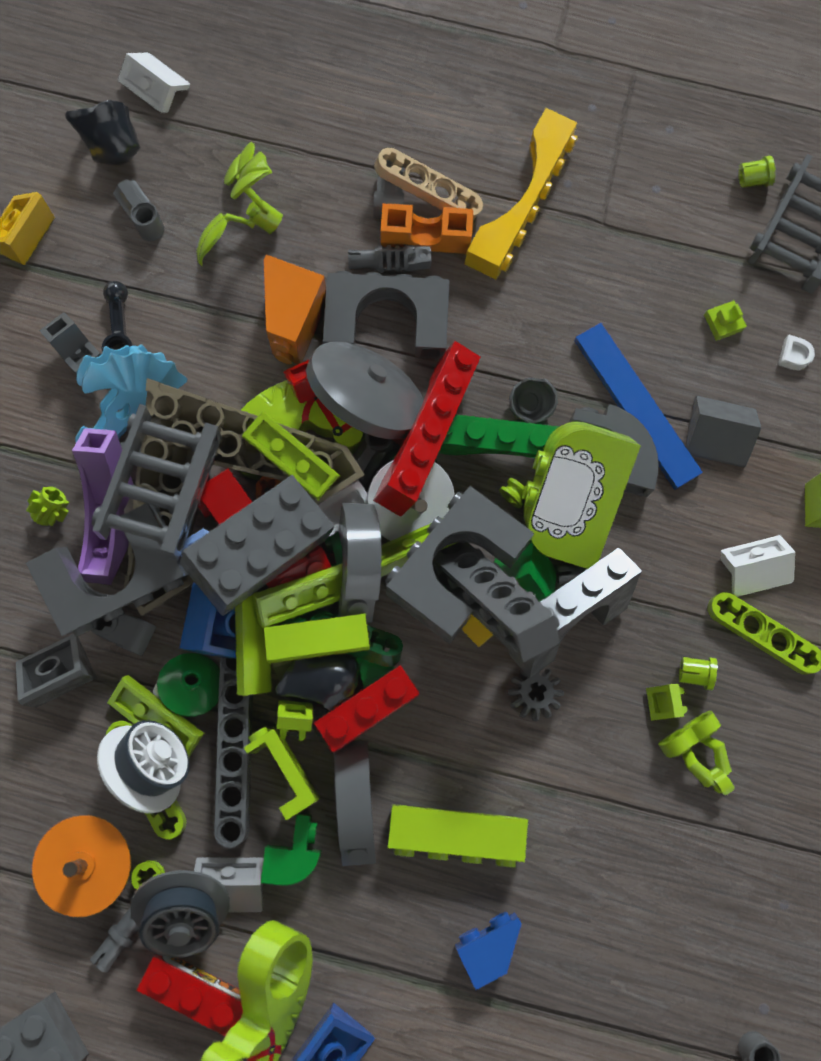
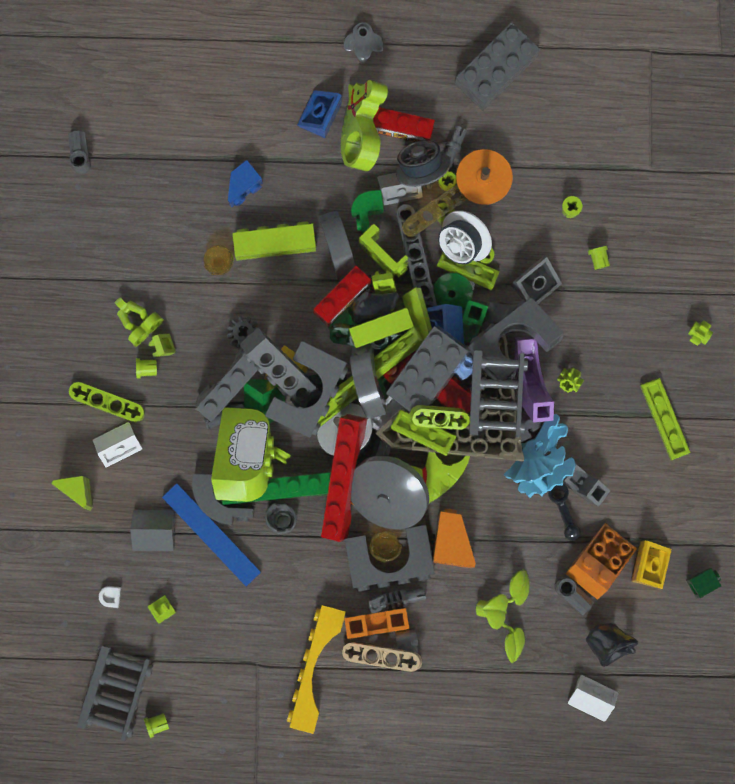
camera: 170 degrees right, 5 degrees up
(86, 244) = (601, 561): none -> orange slope
(164, 632) = (472, 318): none -> green brick
(179, 823) = (434, 209): none -> clear yellow beam
(280, 473) = (447, 422): none -> lime beam
(298, 381) = (435, 494): red slope -> none
(389, 328) = (385, 546): none -> clear yellow hair
(554, 822) = (218, 260): none -> clear yellow hair

